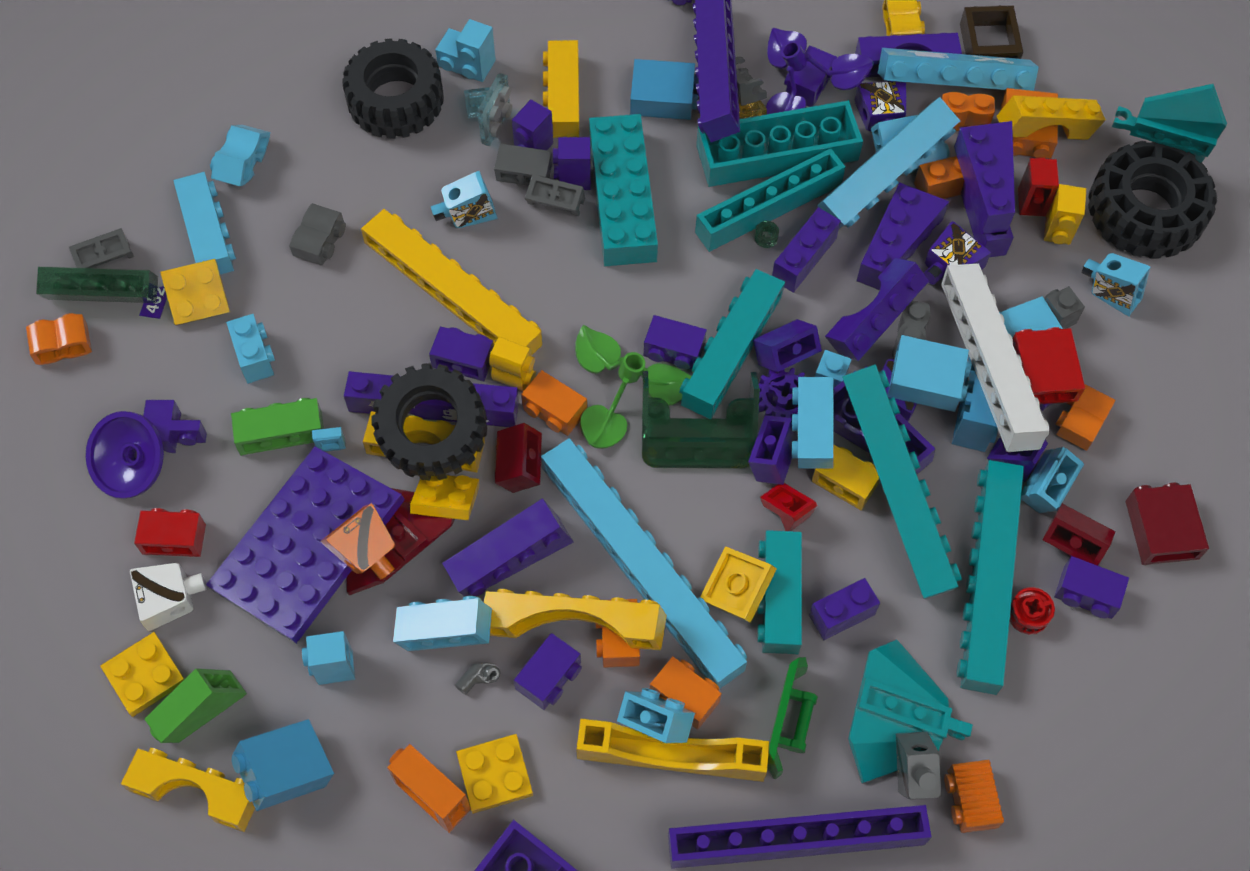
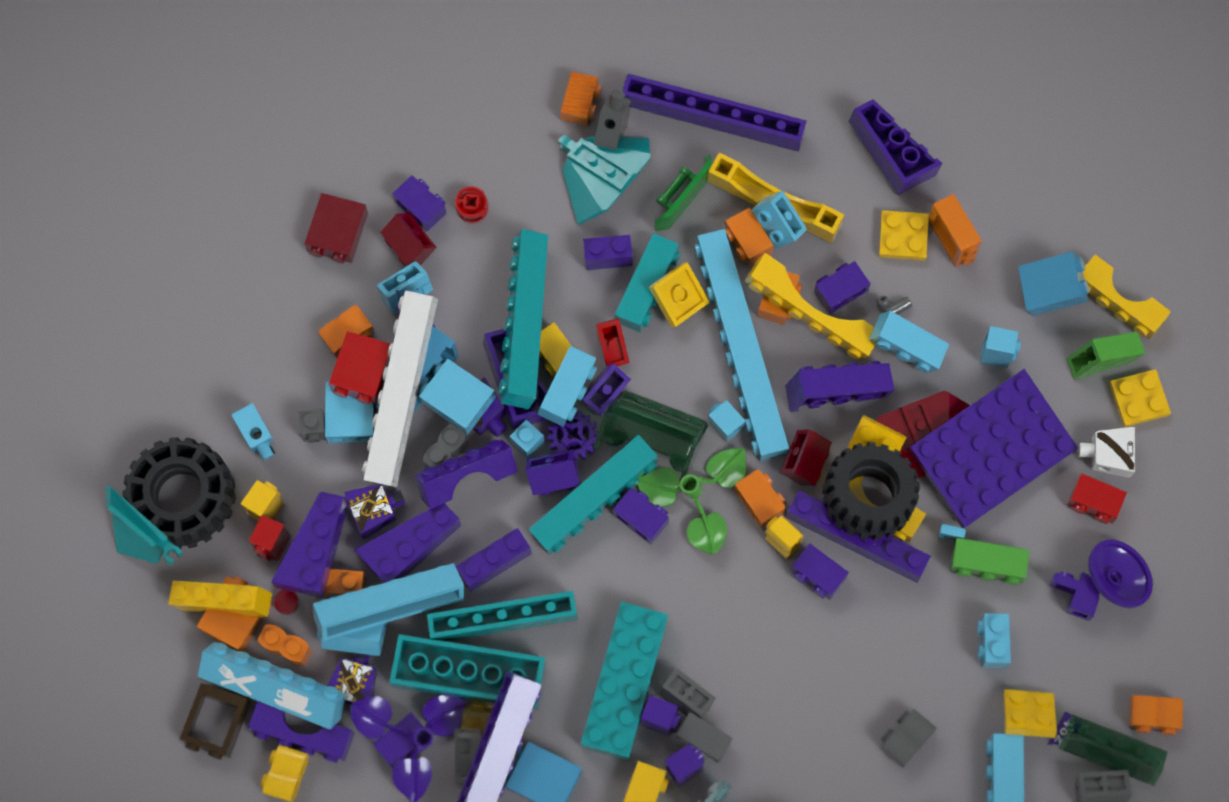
camera: 155 degrees left, 10 degrees up
(362, 542) = (954, 412): orange torso -> none
(447, 282) = (808, 641): yellow brick -> none
(466, 202) = (758, 715): medium azure torso -> none
(624, 470) = (726, 420): none -> medium azure brick
(771, 228) = (512, 588): clear green bush -> none
(991, 578) = (487, 237): teal brick -> none

